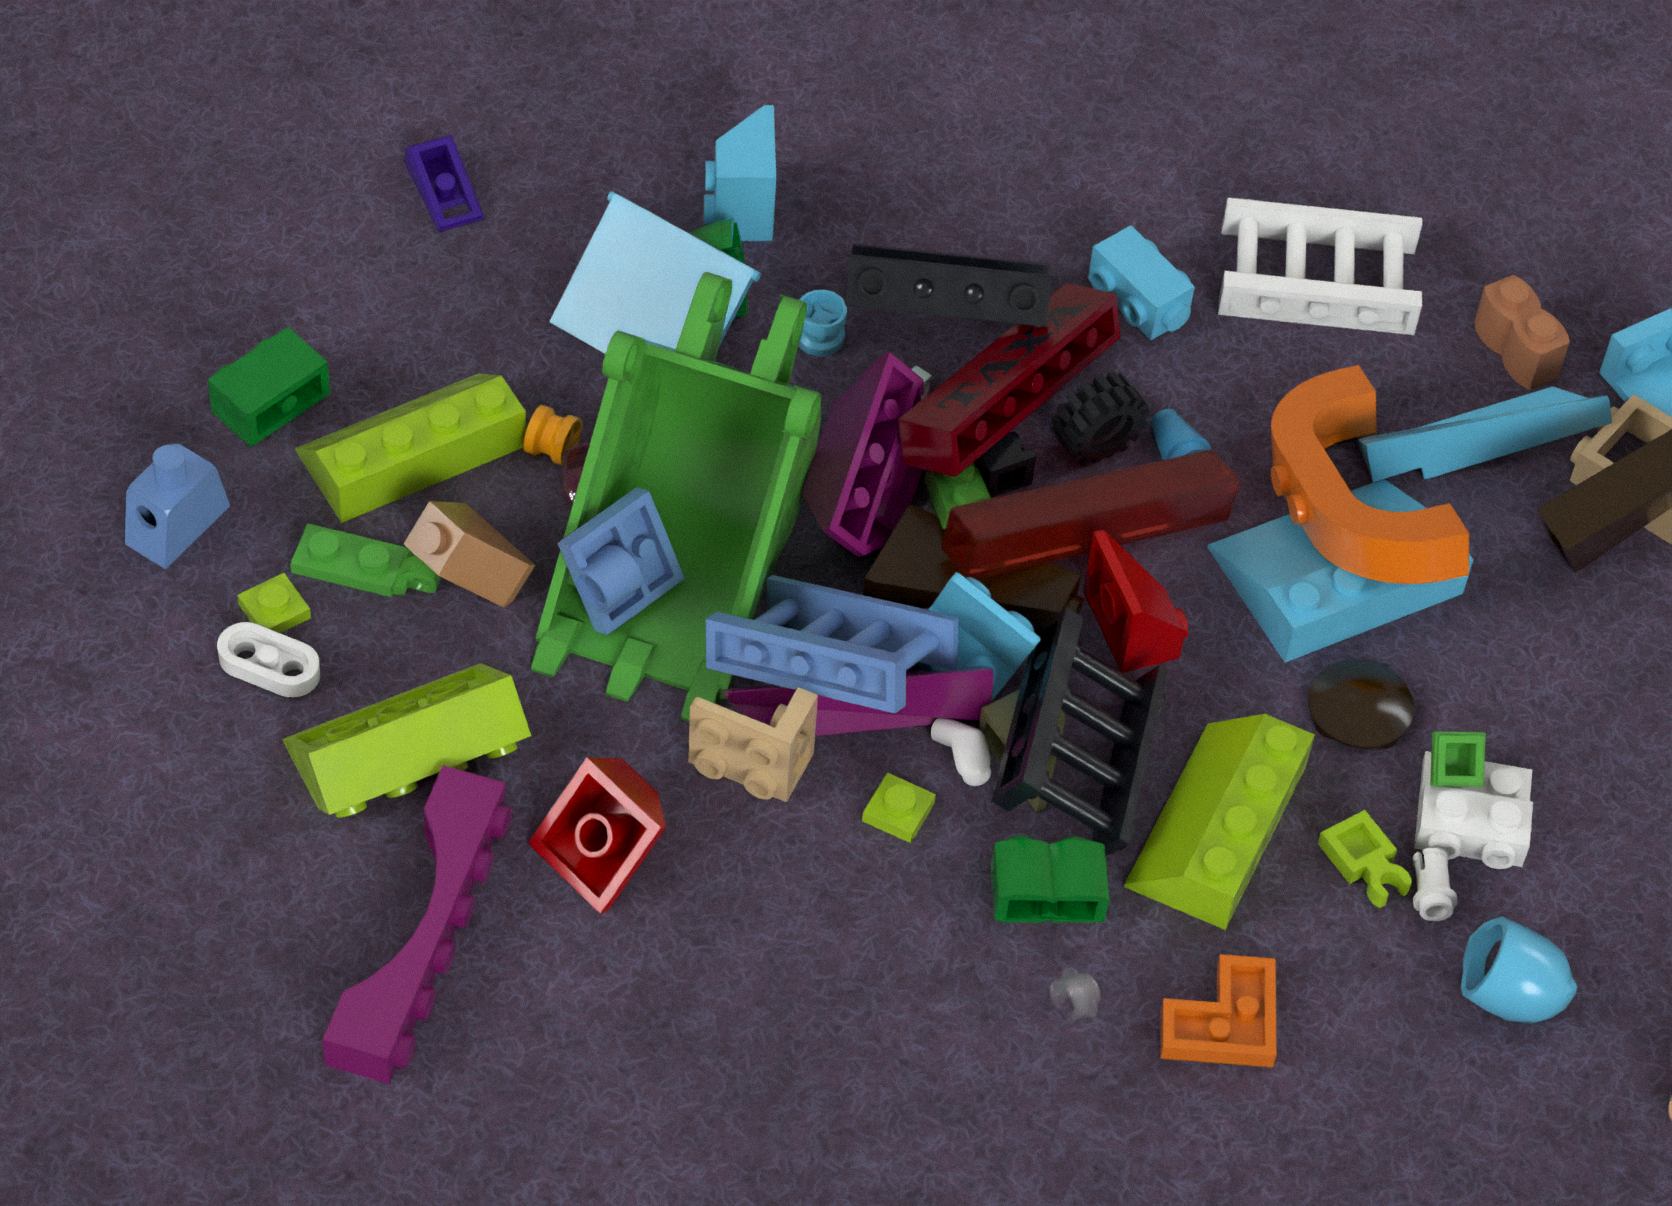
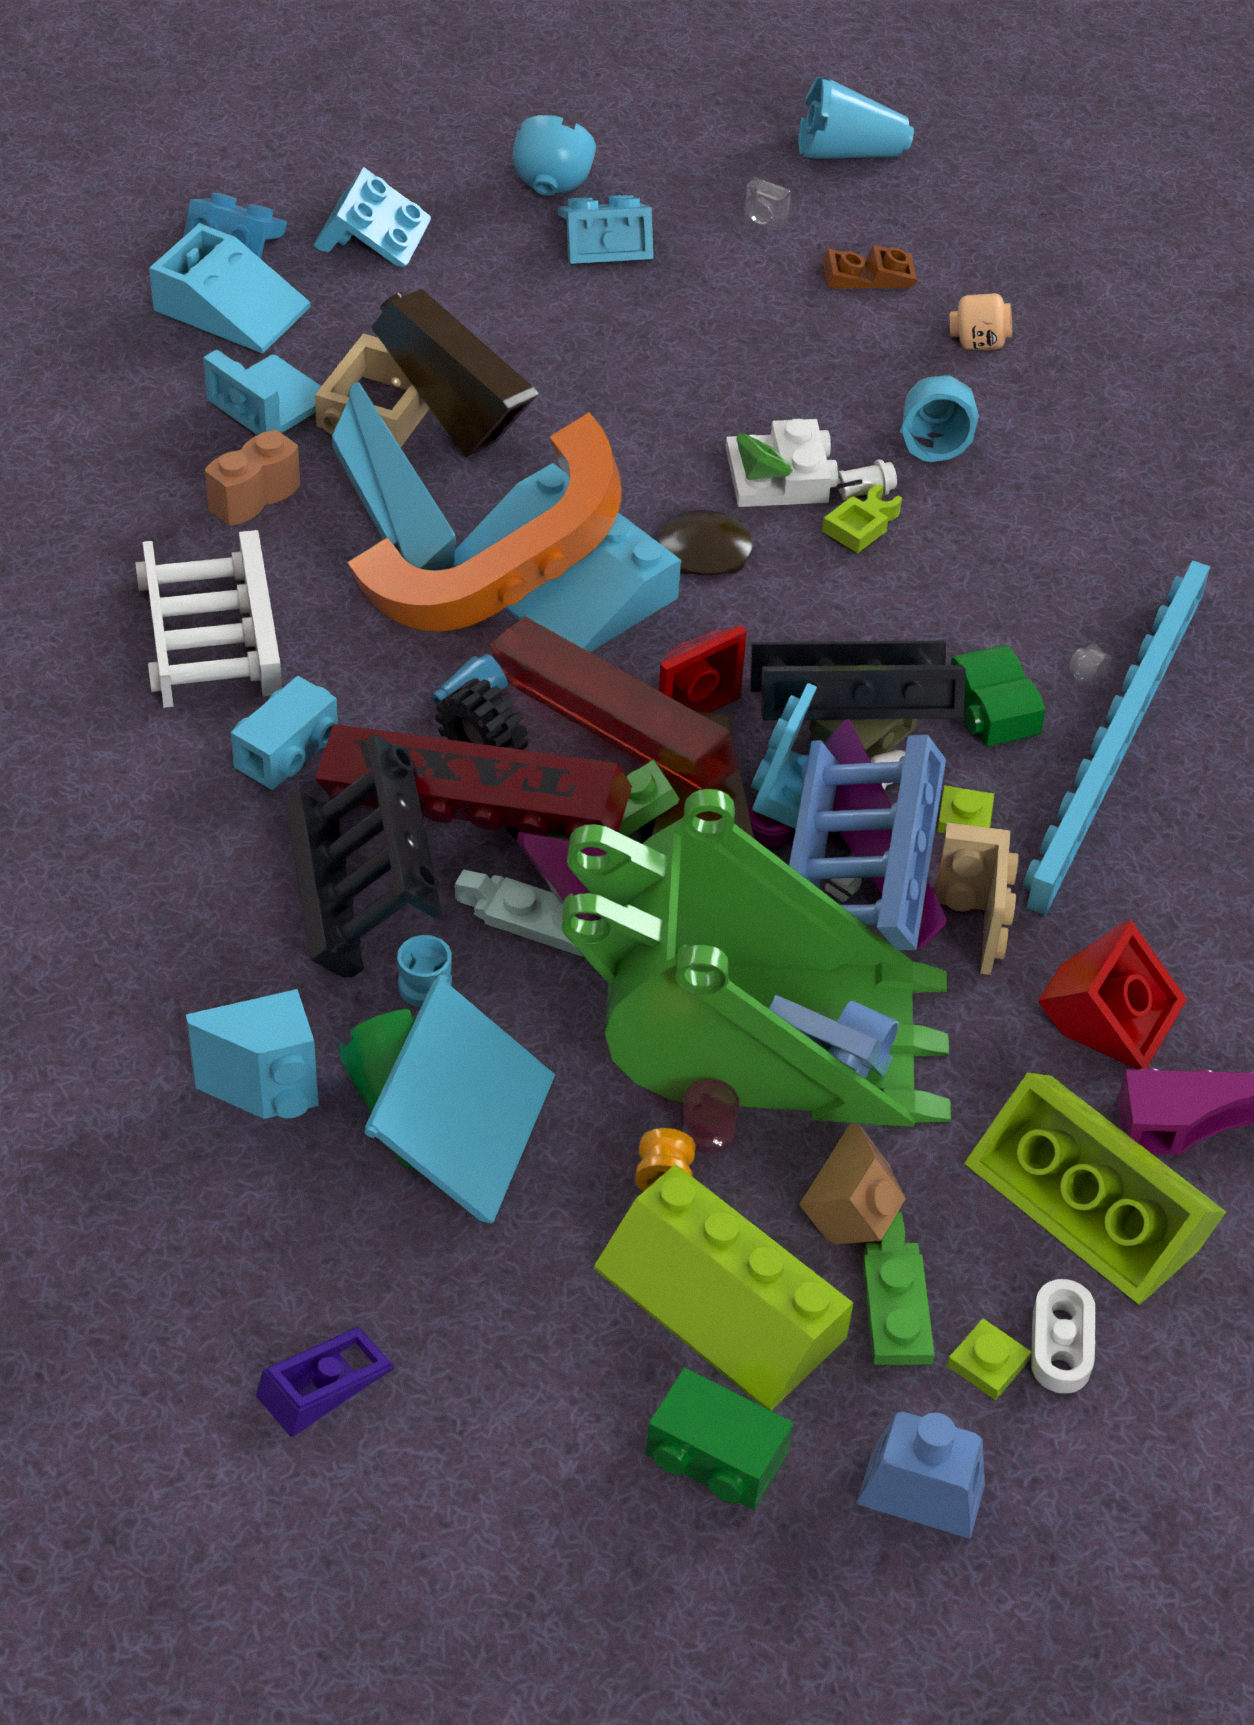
camera: 105 degrees left, 5 degrees down
(980, 990) = (1111, 744): none -> medium azure plate
(1221, 816) = (870, 594): lime slope -> none
(1233, 1029) = (1059, 567): orange plate -> none

